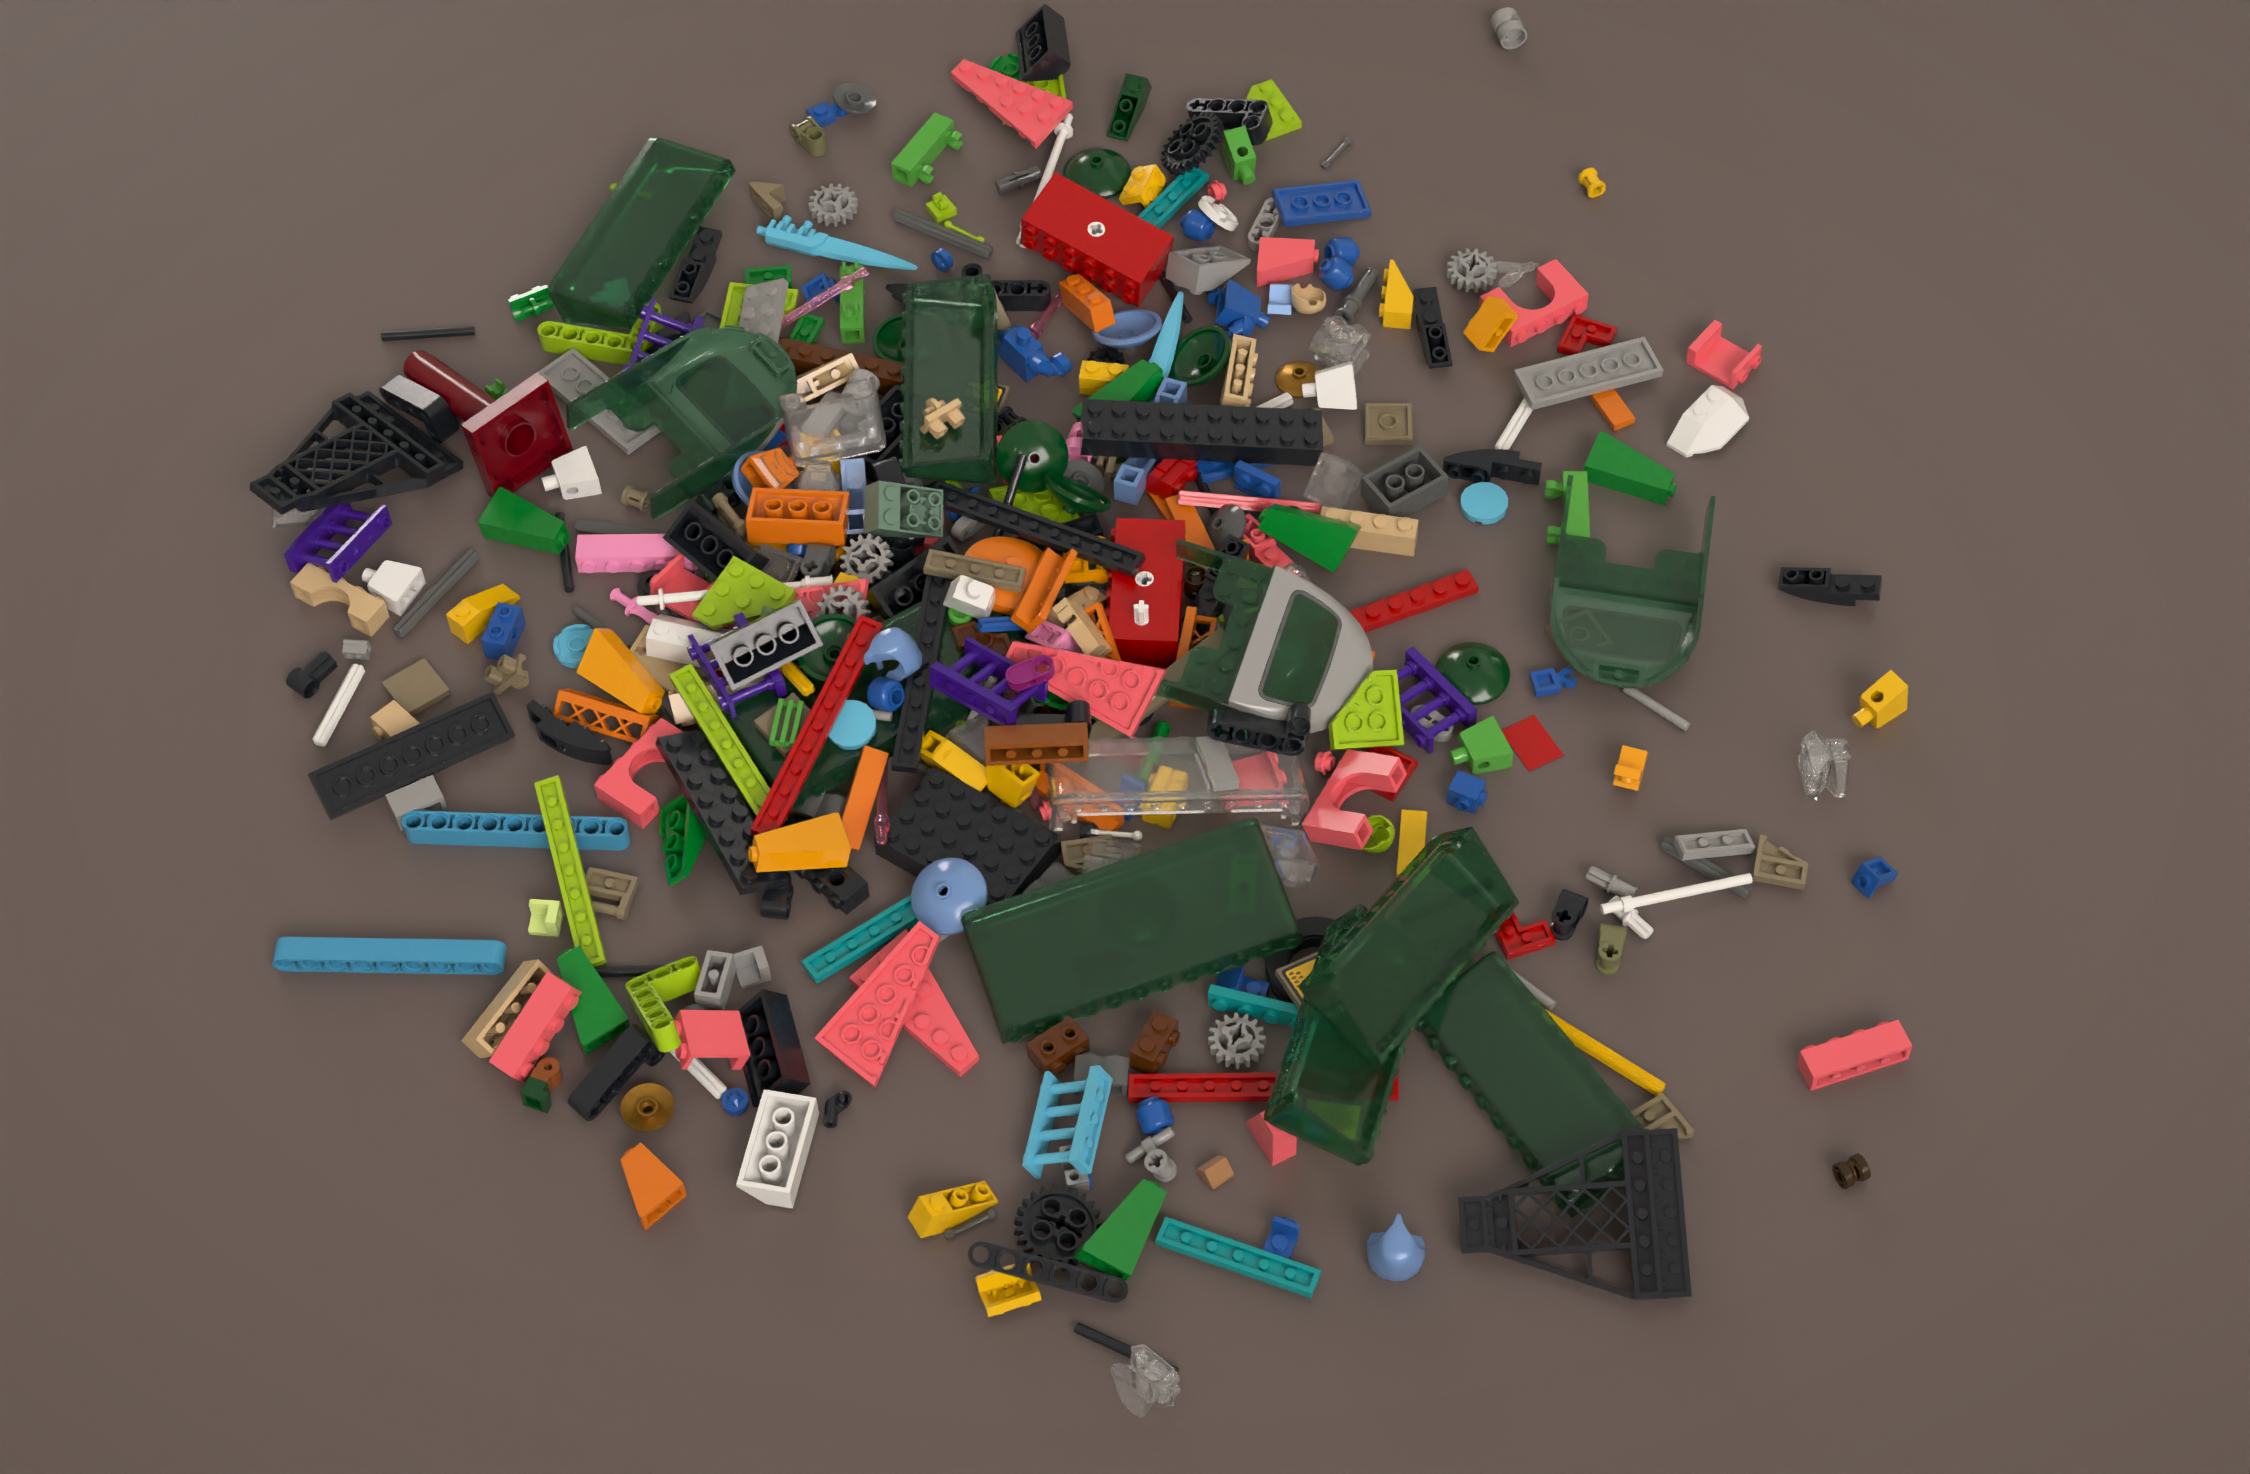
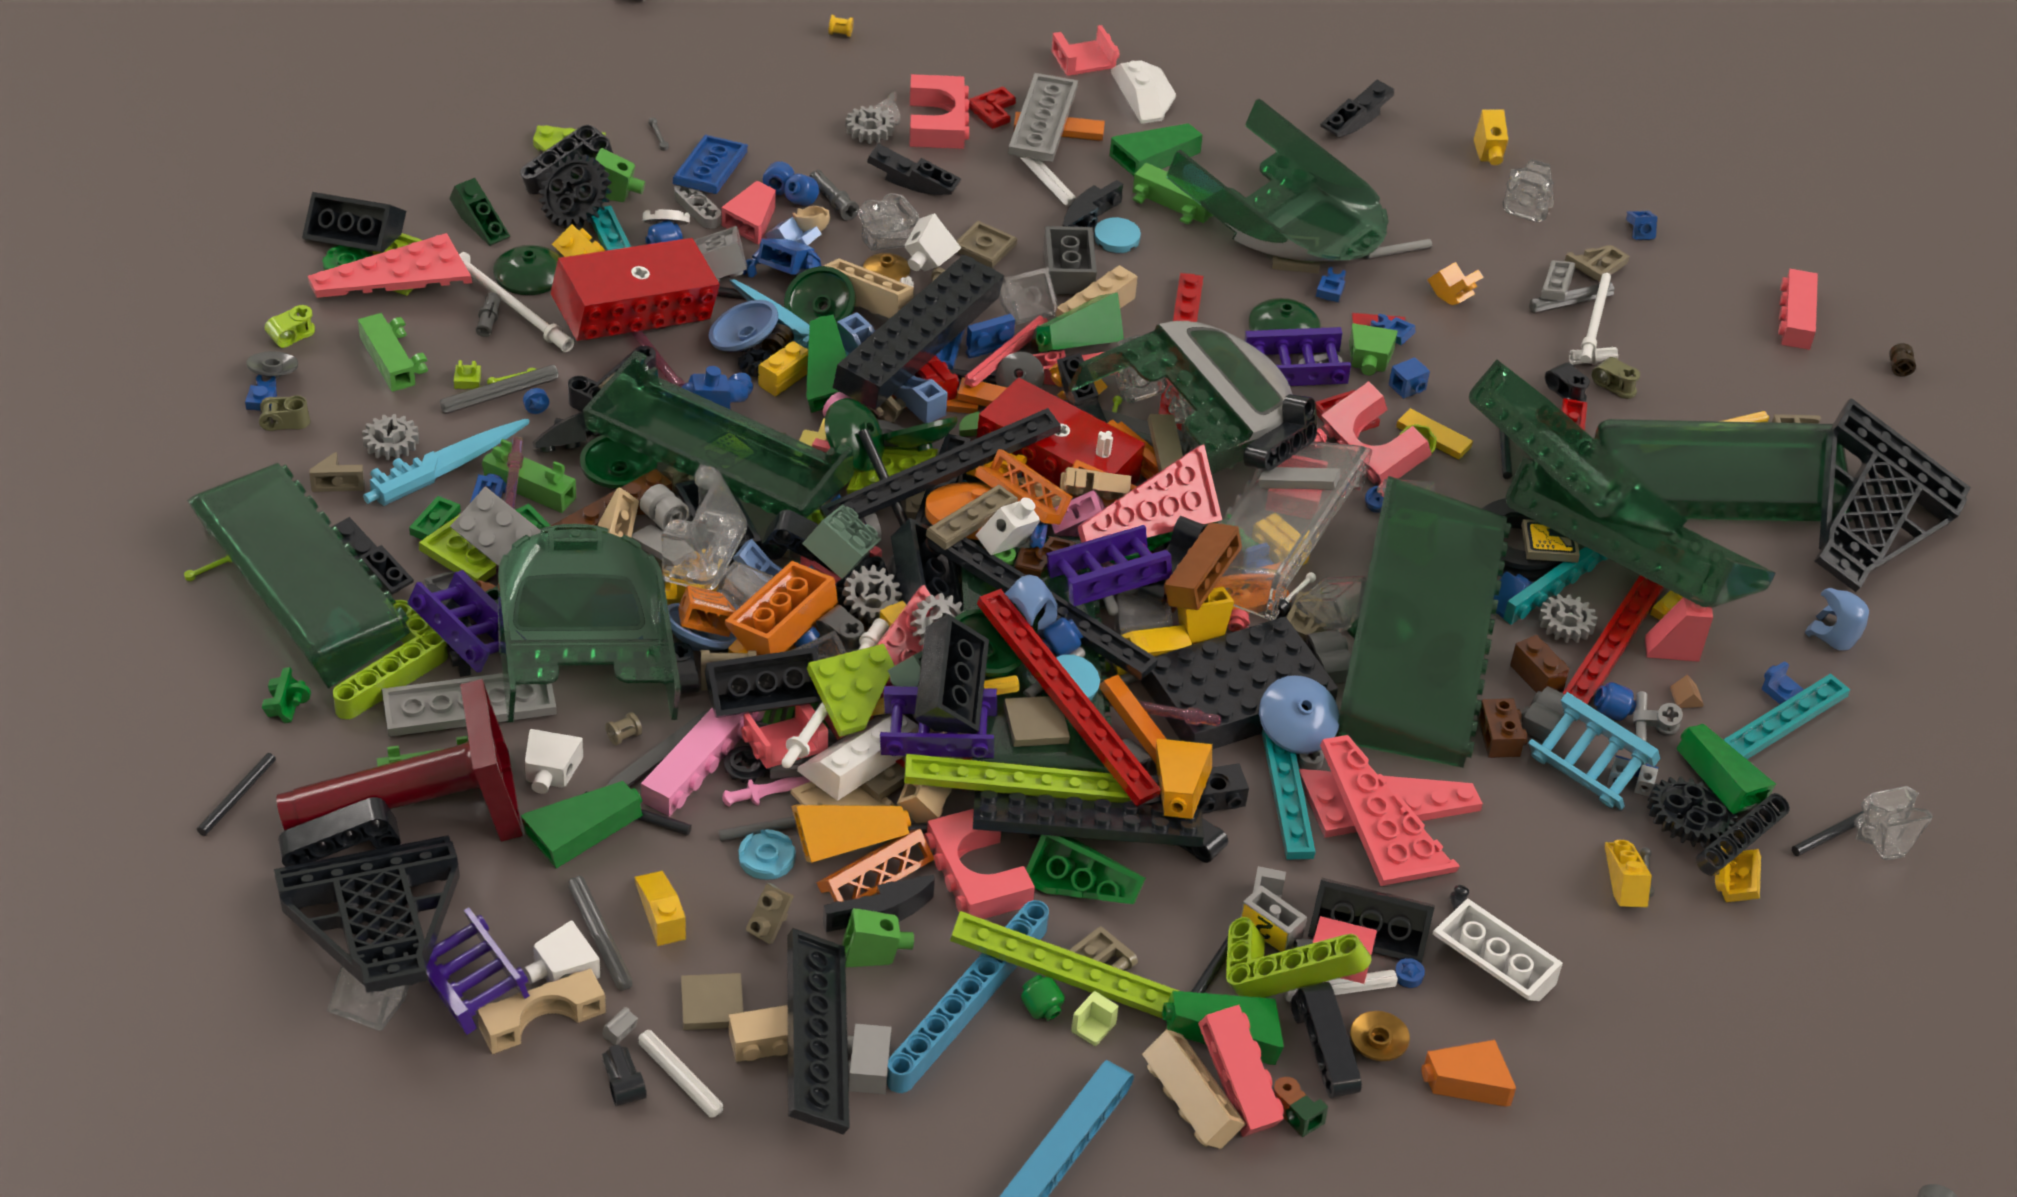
camera: 65 degrees left, 10 degrees down
(503, 631) = (708, 897): blue brick -> none
(524, 745) = (874, 939): none -> bright green torso
(541, 876) = (1042, 997): none -> green head
(790, 705) = (1044, 714): bright green tile -> none
(903, 83) = (289, 327): none -> lime piece
(938, 413) = (756, 466): tan hips -> none
(1024, 674) = (1130, 532): magenta piece -> none
(1087, 302) = (693, 333): orange brick -> none
(1141, 353) = (778, 338): none -> dark brown wheel
(1217, 190) = (630, 217): coral plate -> none
(1370, 715) = (1303, 377): lime plate -> none
(1398, 299) = (858, 173): yellow slope -> none
(1490, 324) = (947, 135): light orange brick -> none
(1527, 753) = (1404, 328): none -> blue plate
(1610, 883) = (1555, 348): light grey axle -> none

